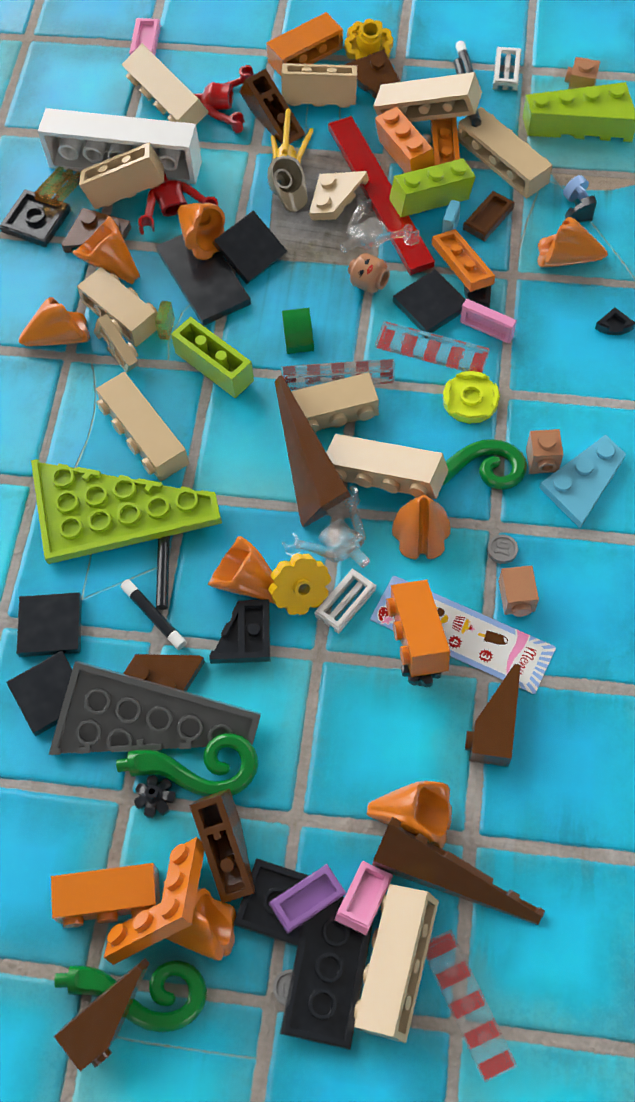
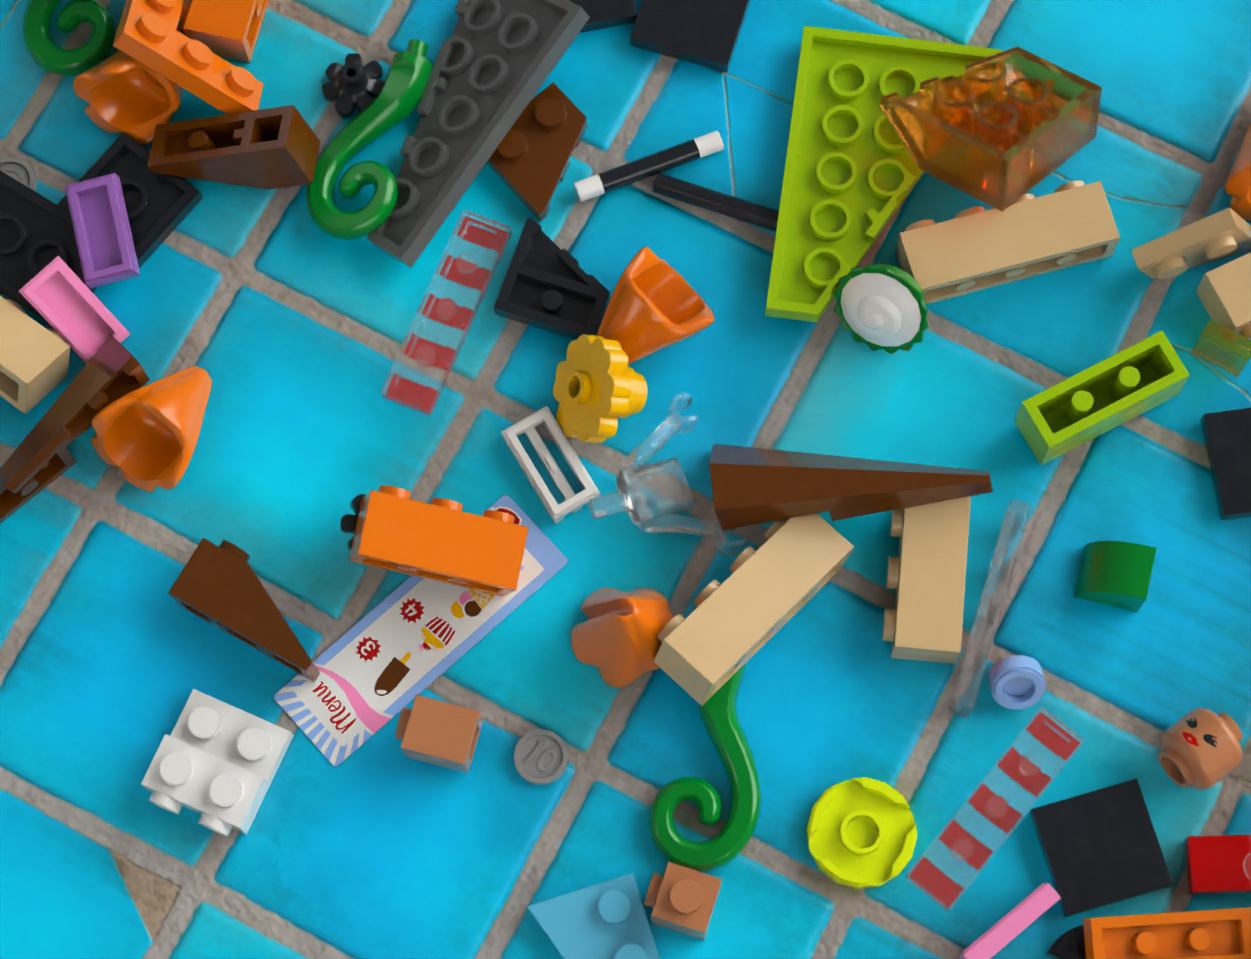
camera: 110 degrees right, 10 degrees up
(79, 442) = (997, 124): none -> clear orange wedge
(199, 464) = (882, 307): none -> white piece
(278, 687) = (446, 312): none -> clear tile
(367, 351) = (1017, 682): none -> light blue tile
(587, 703) = (216, 764): none -> white plate

